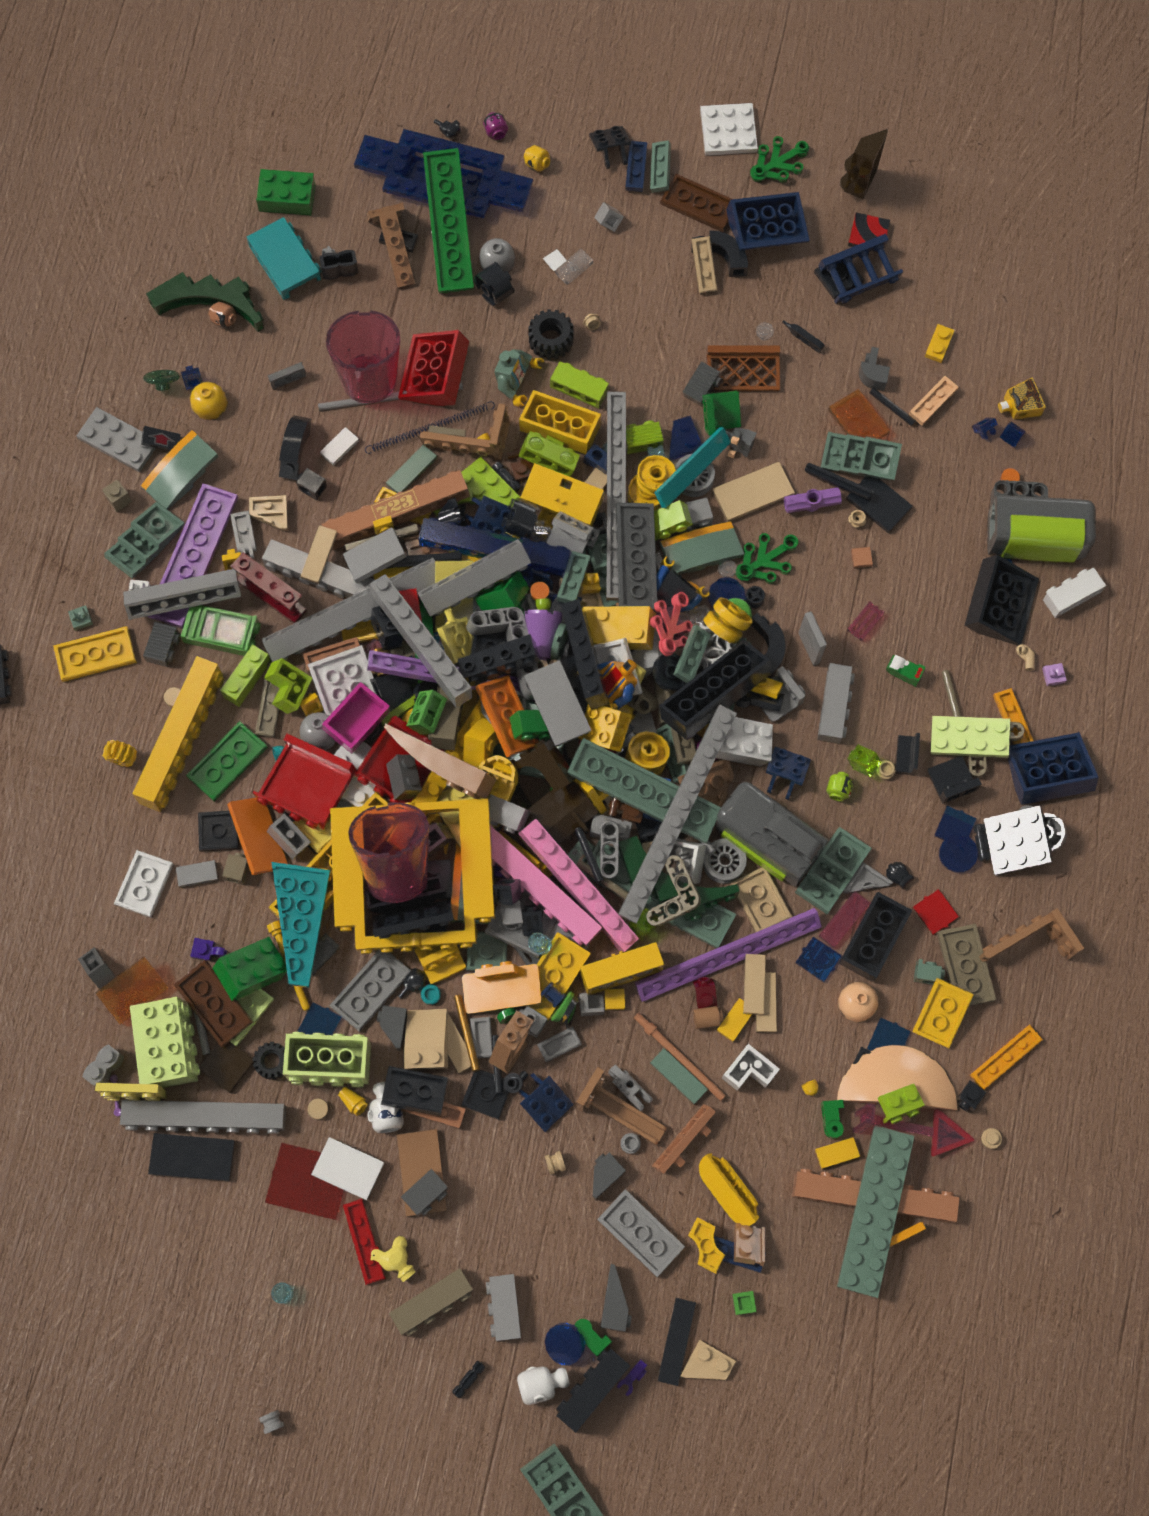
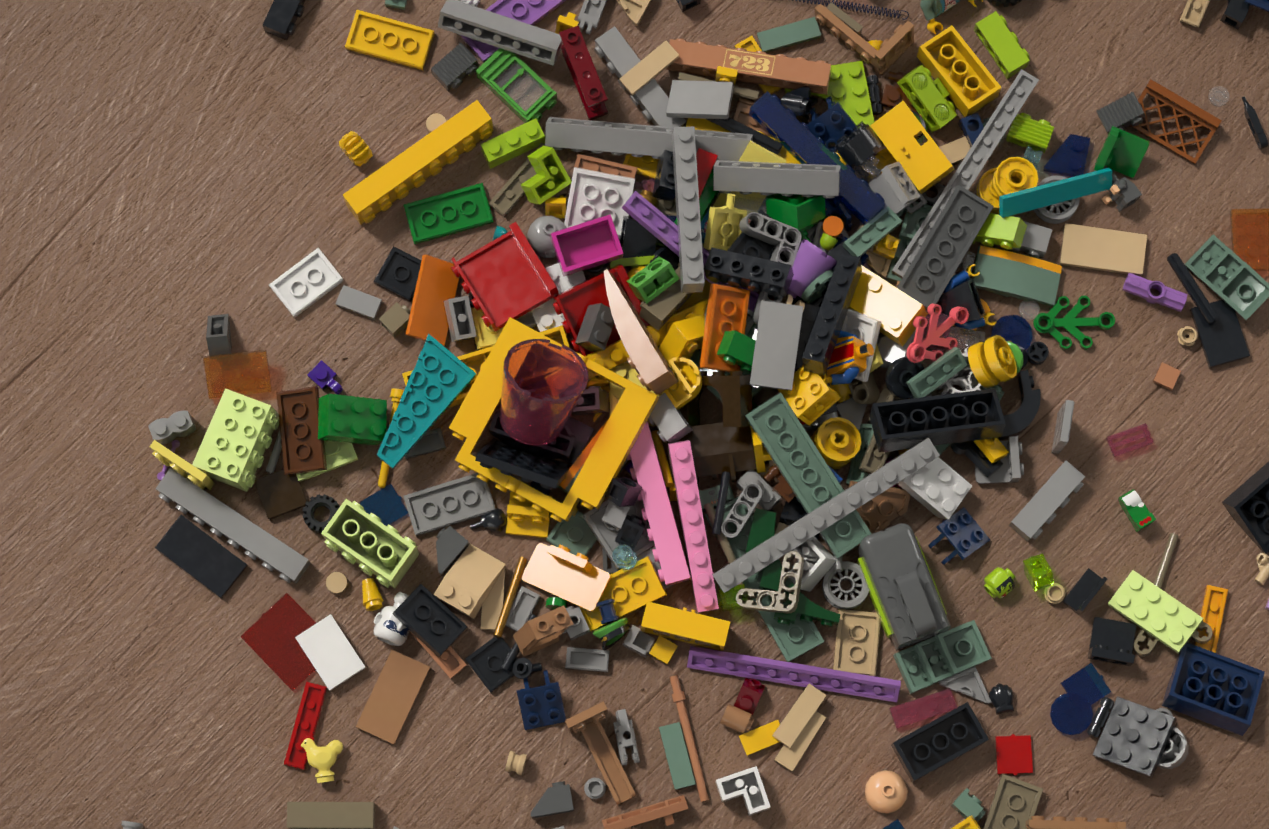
camera: 35 degrees right, 5 degrees up
(278, 1293) = (203, 724): clear light blue wheel -> none
(425, 1193) = (382, 717): dark grey brick -> none
(430, 994) = (500, 542): teal tile -> none
(818, 959) = (875, 730): clear blue piece -> none

